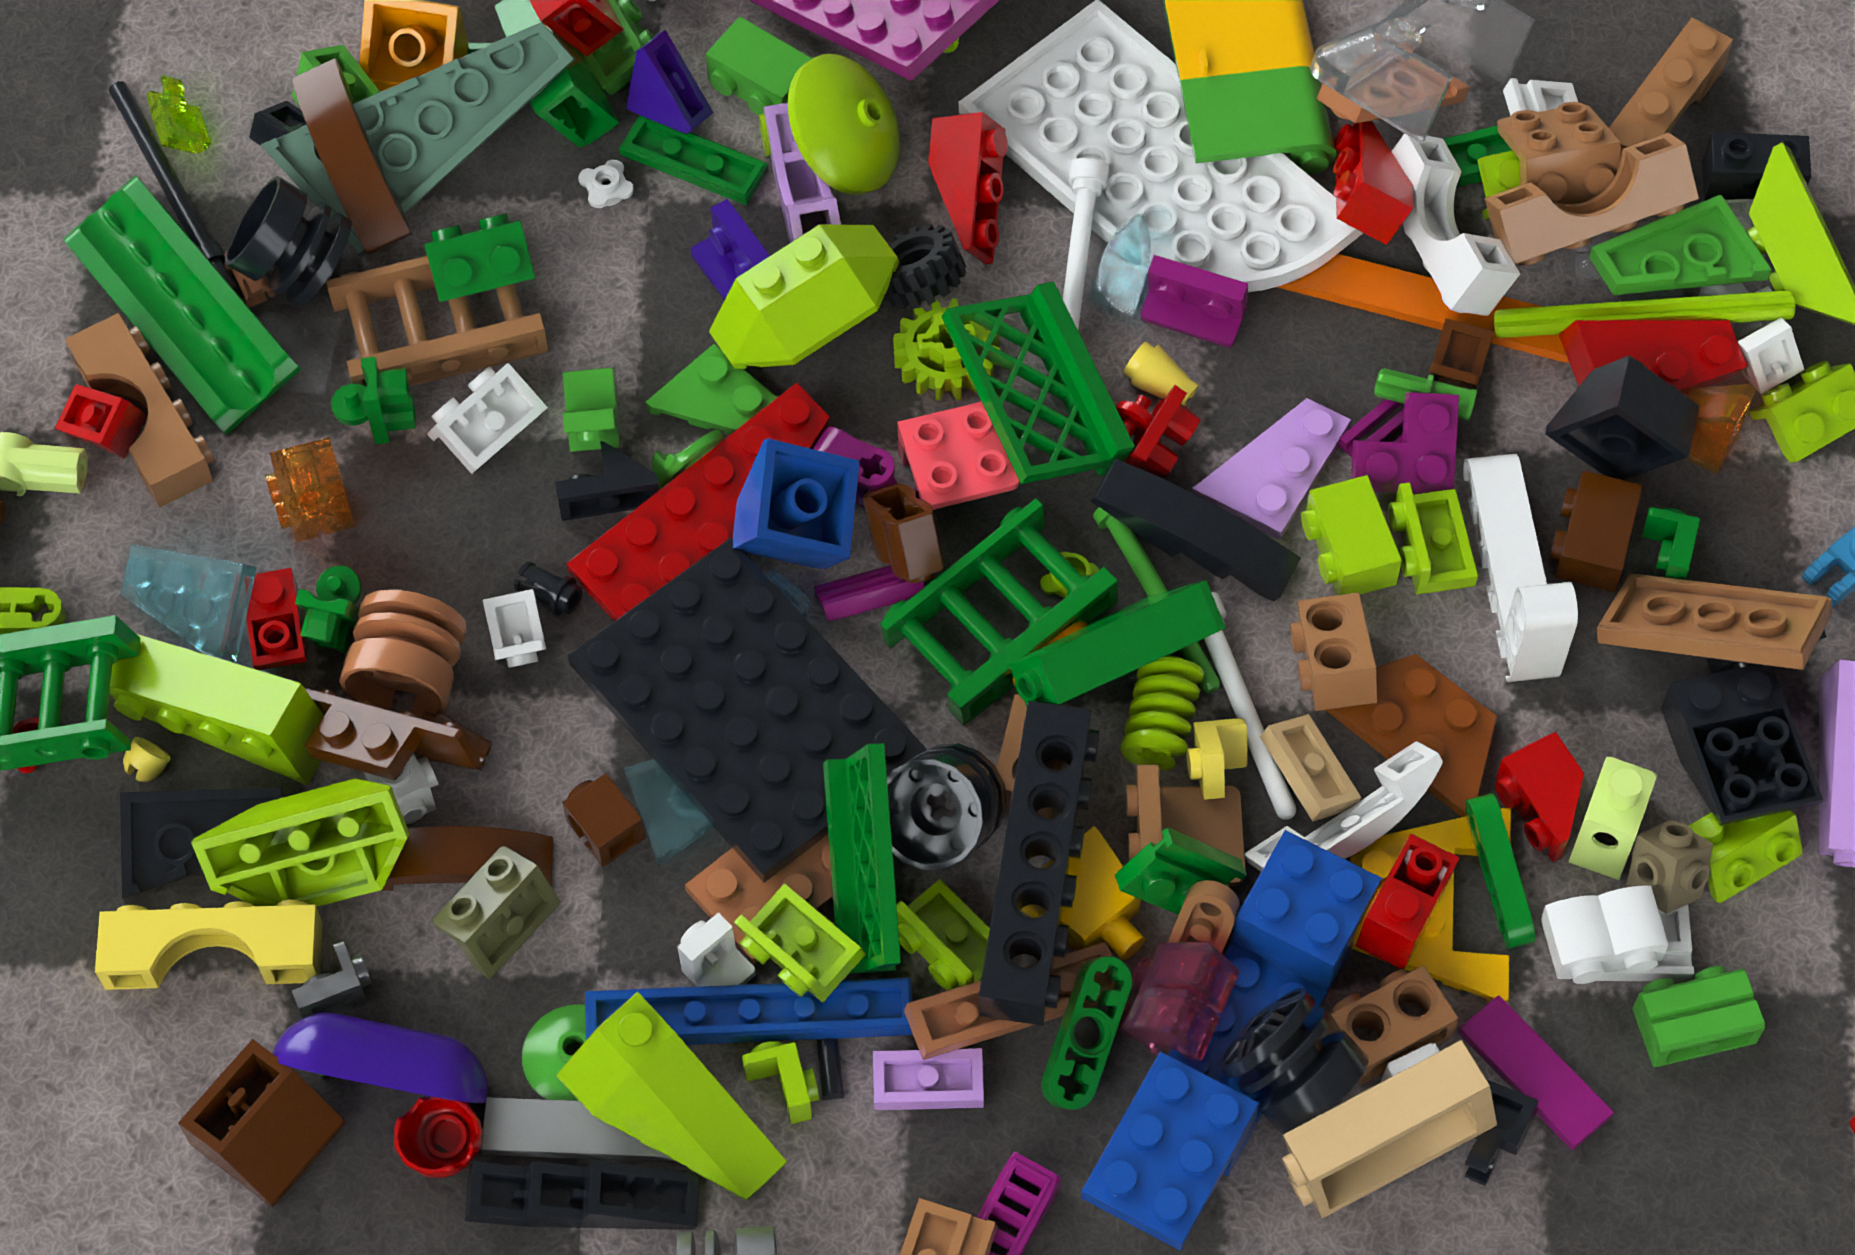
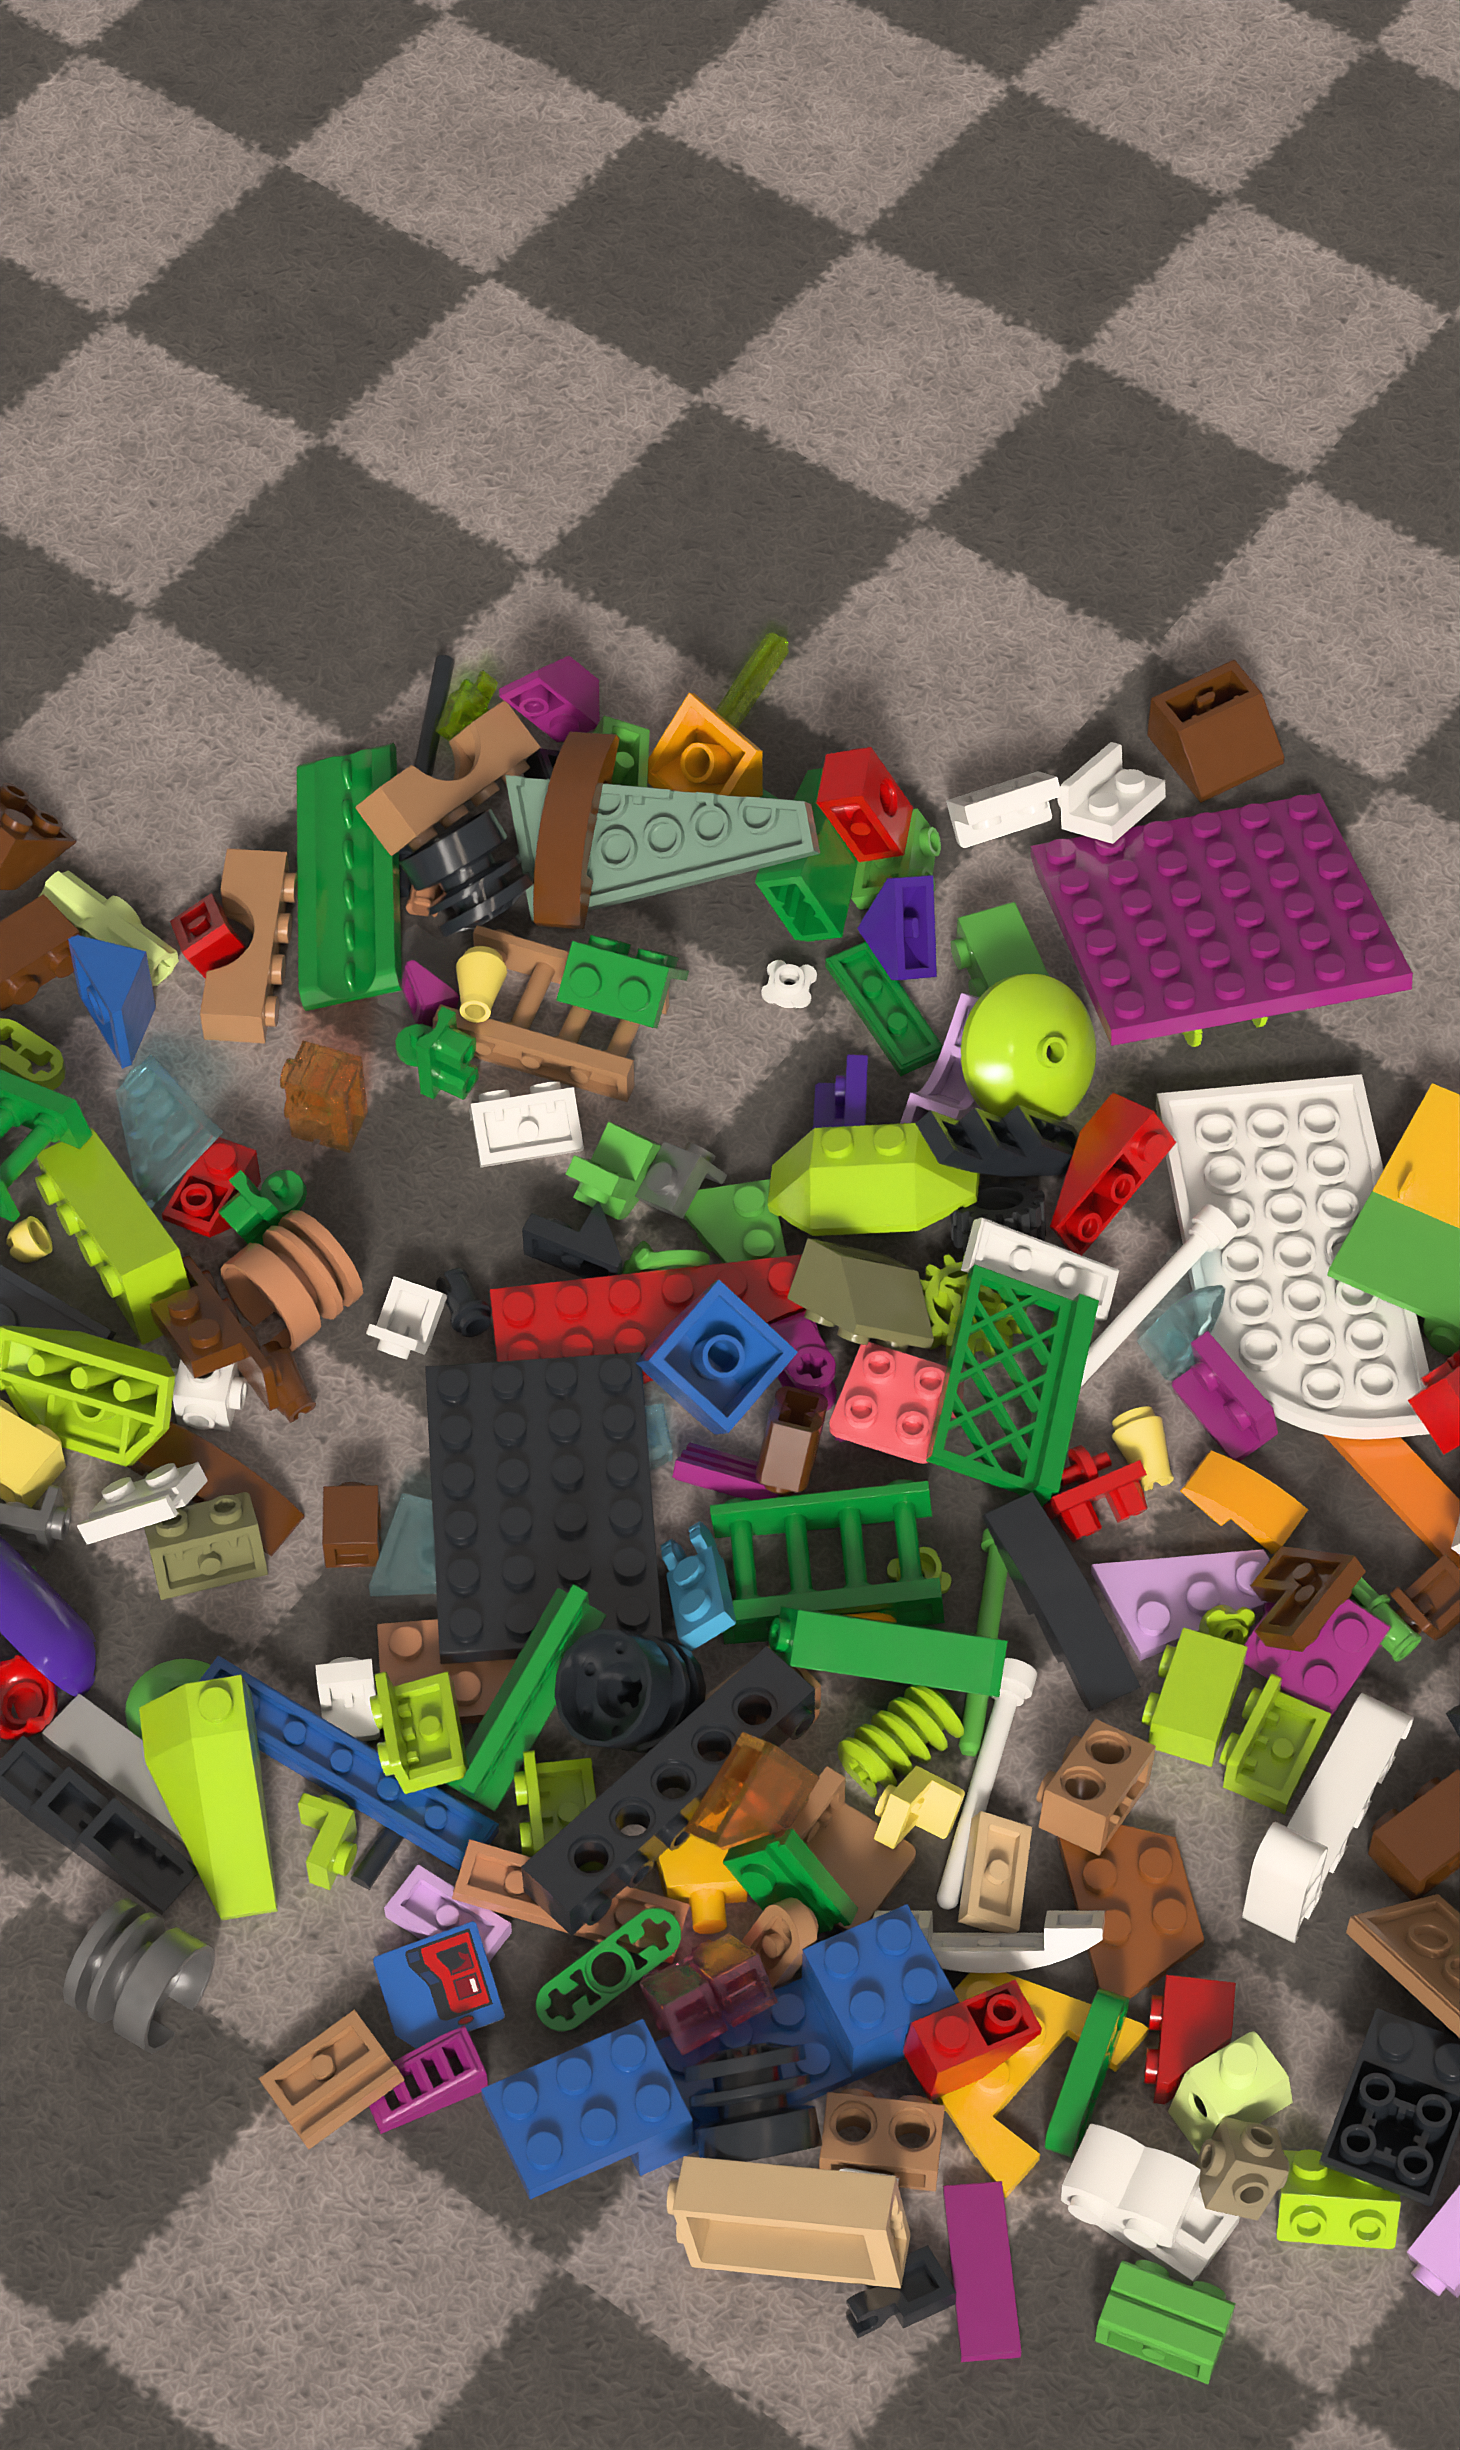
camera: 35 degrees right, 5 degrees down
(59, 512) = (116, 992): none -> blue slope
(203, 211) = (413, 802): none -> medium nougat arch
(245, 63) = (557, 698): none -> magenta slope
(324, 360) = (425, 993): none -> magenta slope
(366, 321) = (479, 982): none -> light yellow cone
(424, 908) = (142, 1503): none -> white plate
(644, 386) = (677, 1177): none -> flat silver bracket
(871, 385) = (862, 1295): none -> olive slope
(885, 207) = (1006, 1146): none -> black slope
(924, 694) = (698, 1588): none -> dark azure hinge
(964, 1135) = (439, 1985): none -> sticker
(979, 282) = (1039, 1264): none -> white tile
(1110, 823) = (752, 1795): none -> clear orange slope
(1254, 368) = (1238, 1493): none -> light orange slope
(1329, 469) = (1223, 1618): none -> lime plate
(1383, 402) = (1306, 1594): none -> reddish brown plate

